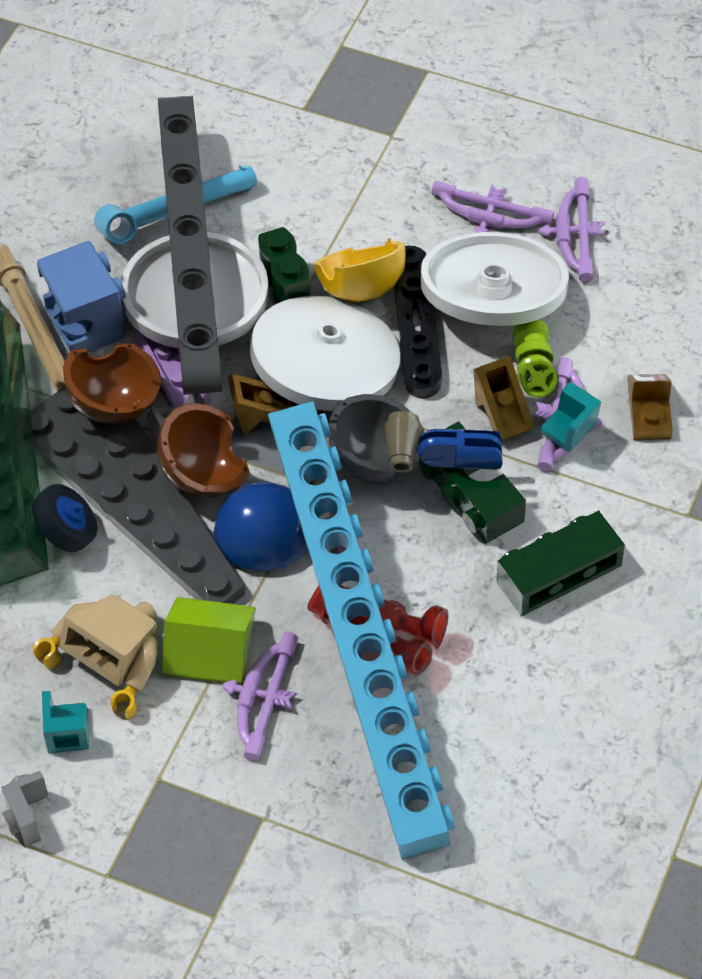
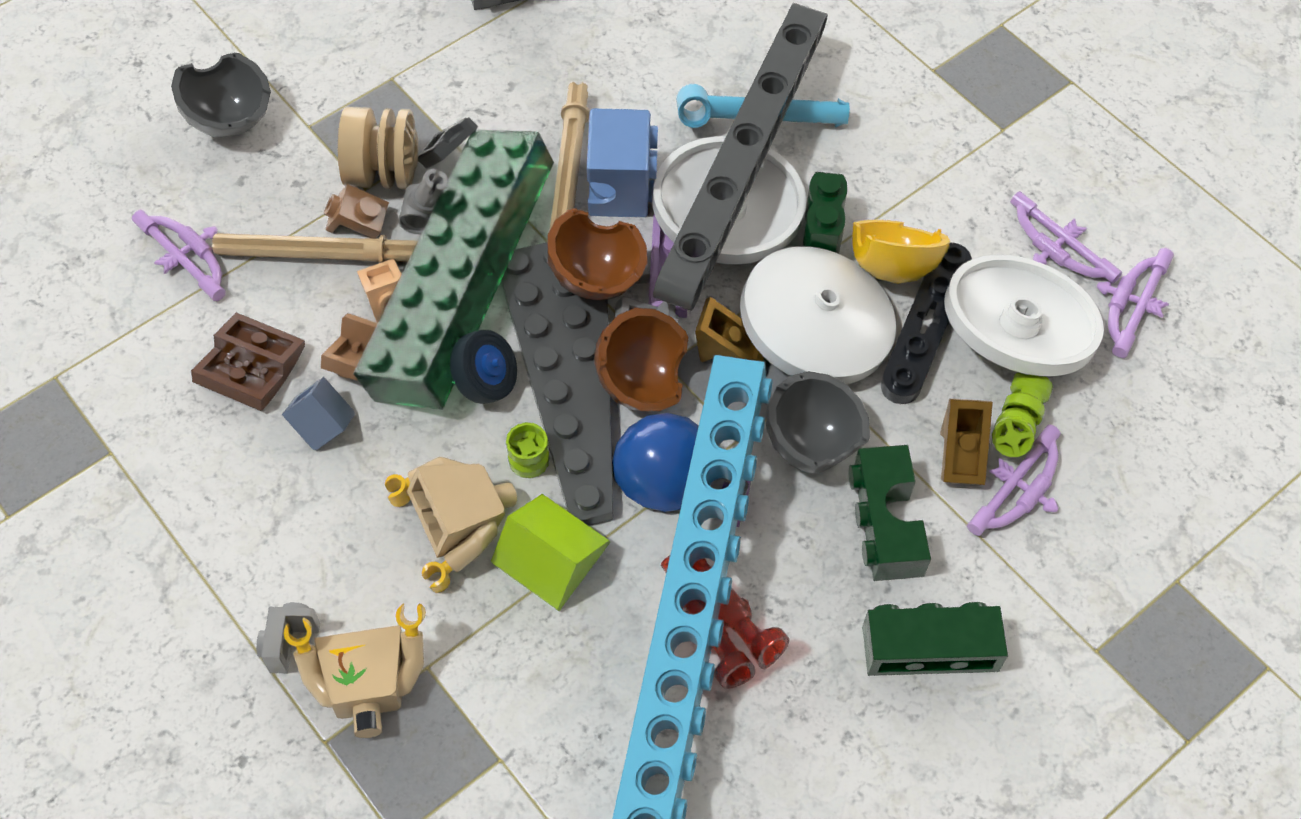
camera: 25 degrees right, 5 degrees up
(64, 725) = (370, 569): teal panel -> none
(108, 802) = (362, 670): none -> tan torso
(142, 569) = (521, 443): none -> lime wheel
(255, 741) = (536, 676): lavender piece -> none
(402, 439) = (837, 439): dark tan cone -> none
(461, 449) = (891, 476): blue arm -> none
(573, 418) = (1027, 494): teal panel -> none
(650, 406) = (1116, 516): pearl gold slope -> none

